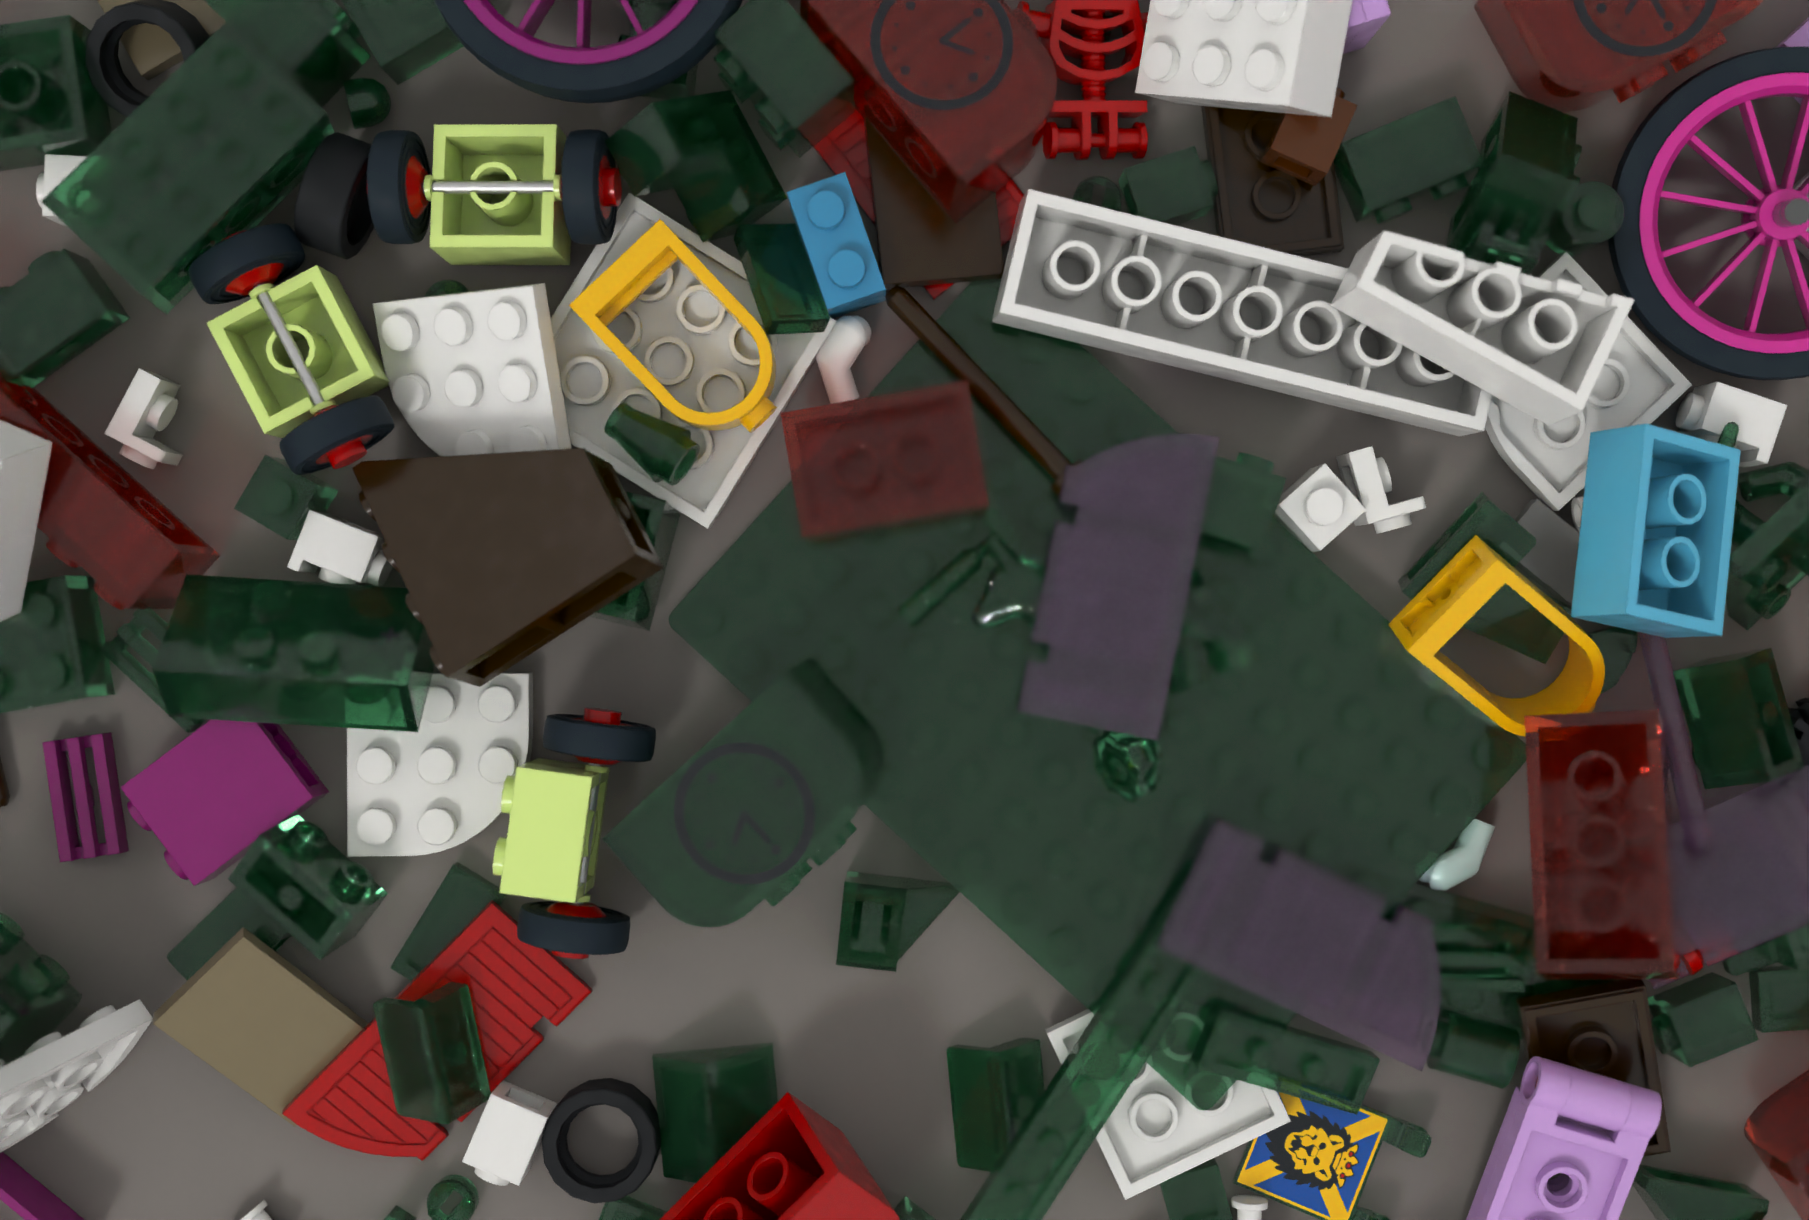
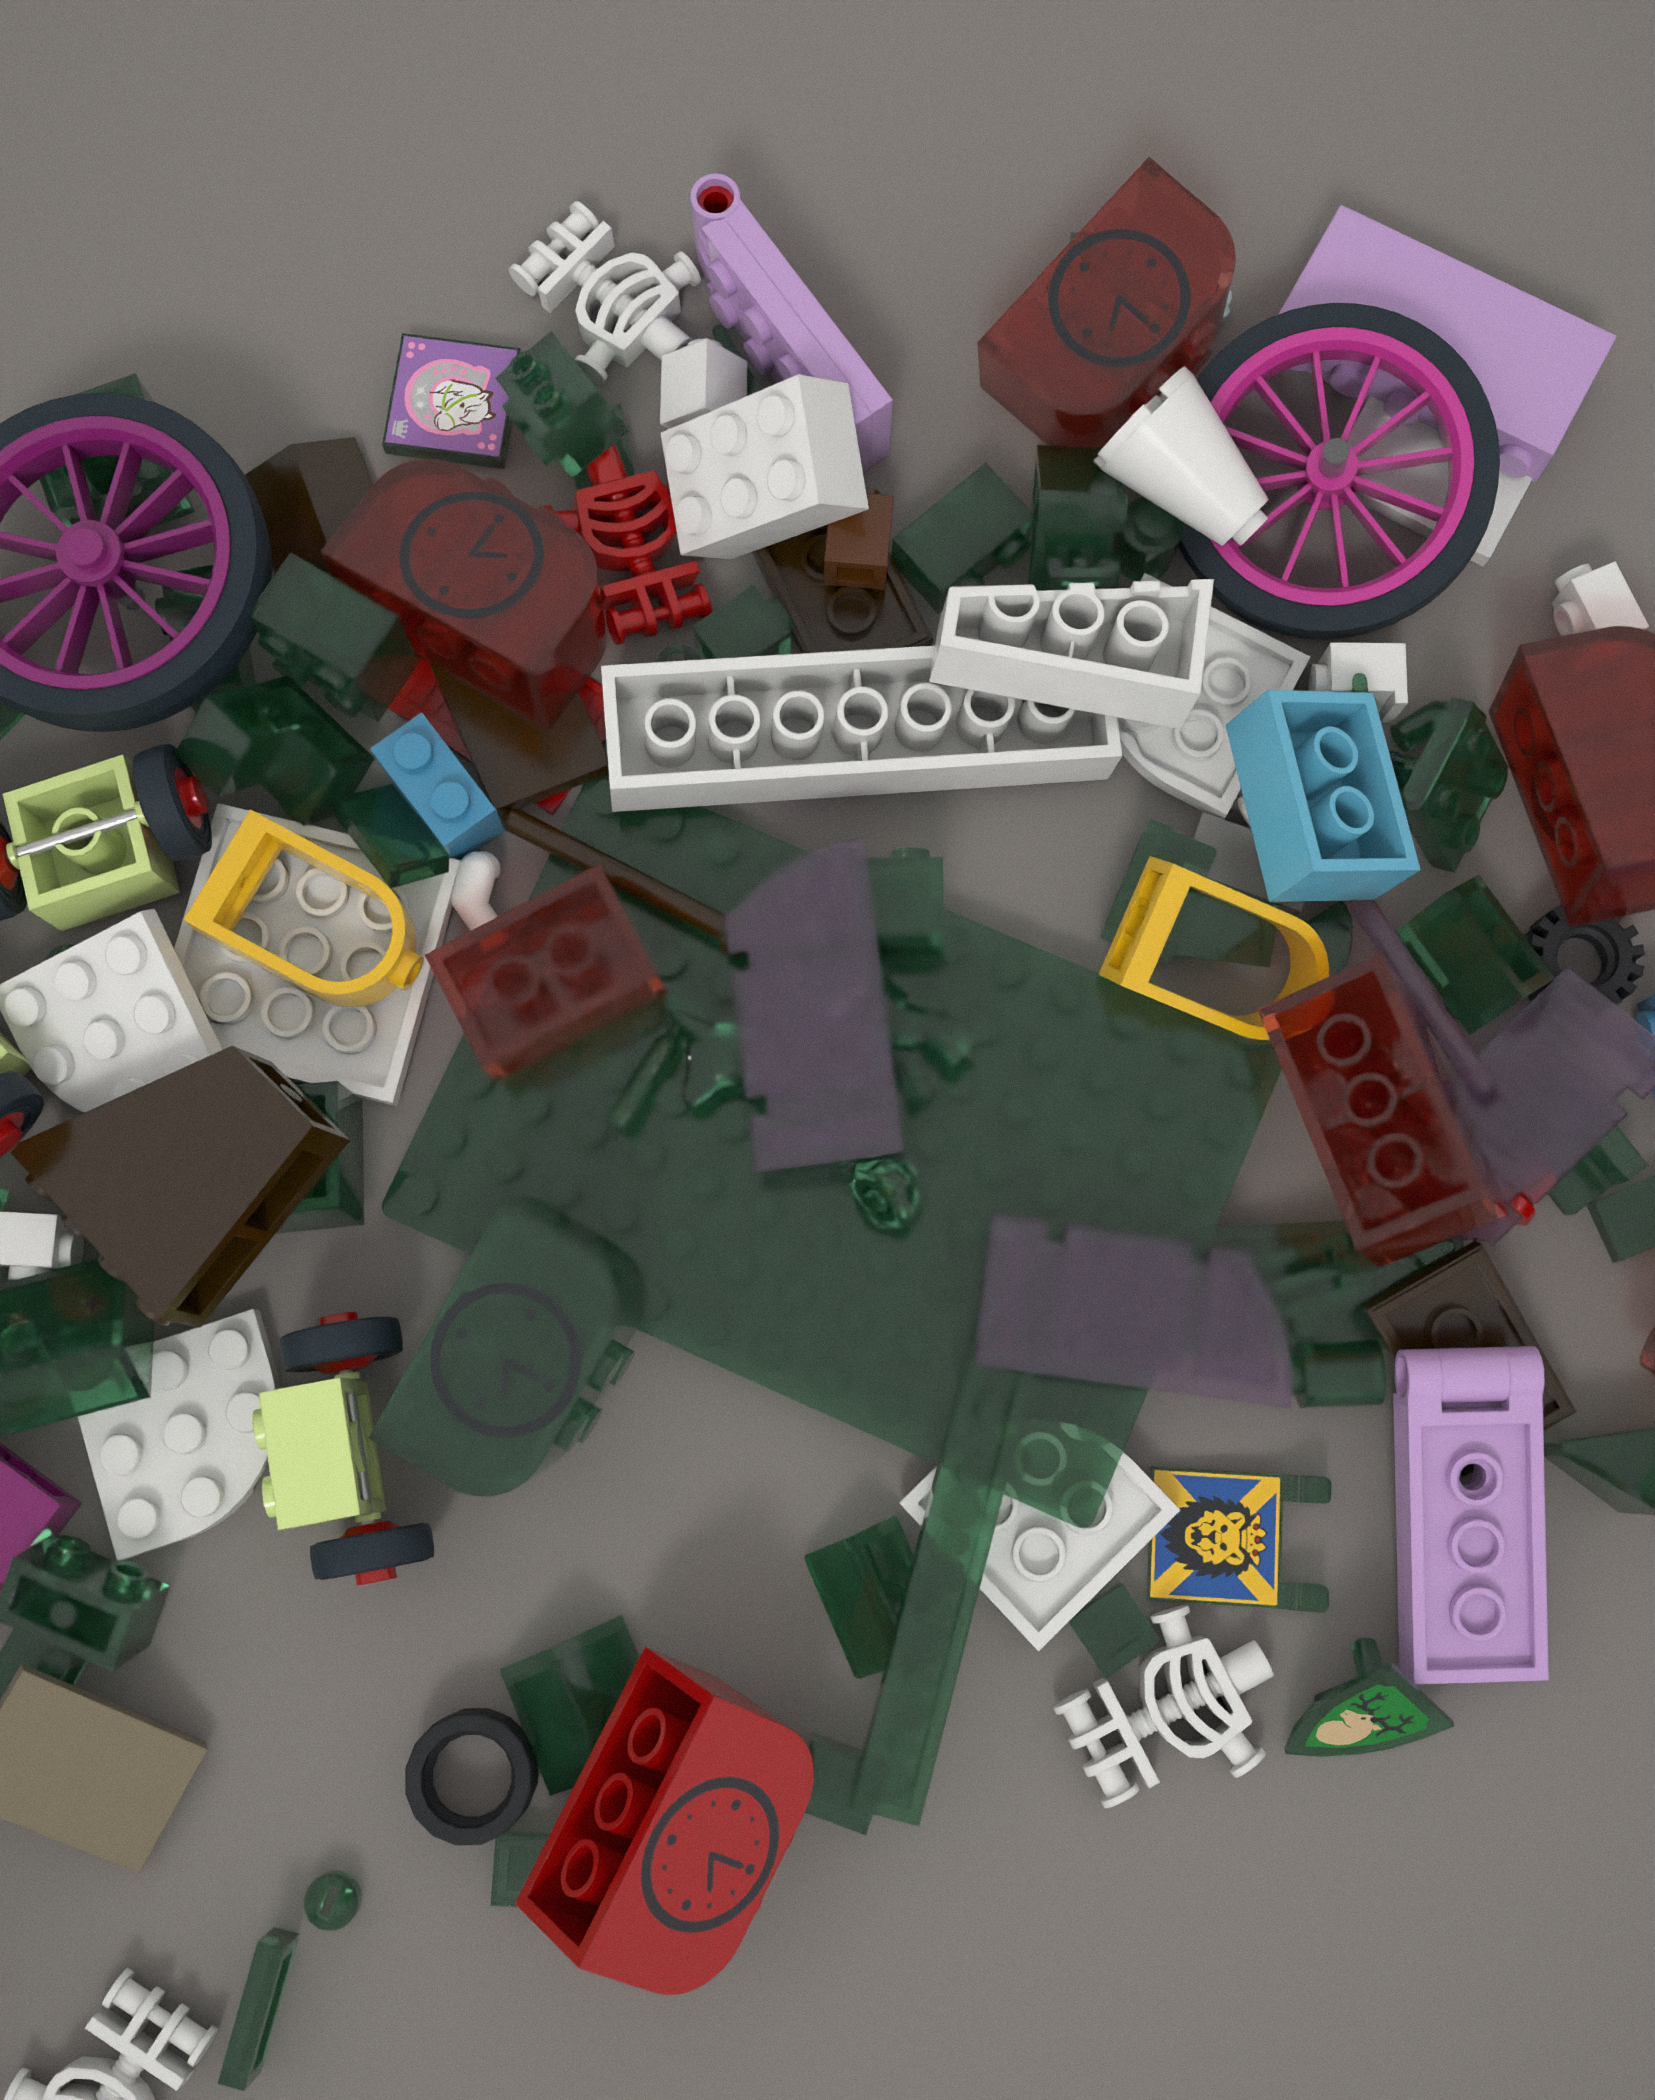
camera: 25 degrees left, 10 degrees down
(433, 1054) = (263, 1738): clear green panel -> none
(449, 912) = (247, 1606): clear green tile -> none
(508, 1134) = (368, 1804): white brick -> none
(509, 994) = (270, 1729): red piece -> none
(654, 444) = (311, 1032): clear green cone -> none
(886, 917) = (697, 1440): clear green slope -> none
(1284, 1059) = (1149, 1444): clear green tile -> none
(1317, 508) = (990, 886): white brick -> none
(1368, 482) = (1033, 850): white bracket -> none
(1462, 860) = (1260, 1187): light aqua arm -> none
(1649, 169) = (1187, 463): none -> white cone
(1700, 1019) = (1554, 1267): clear green brick -> none

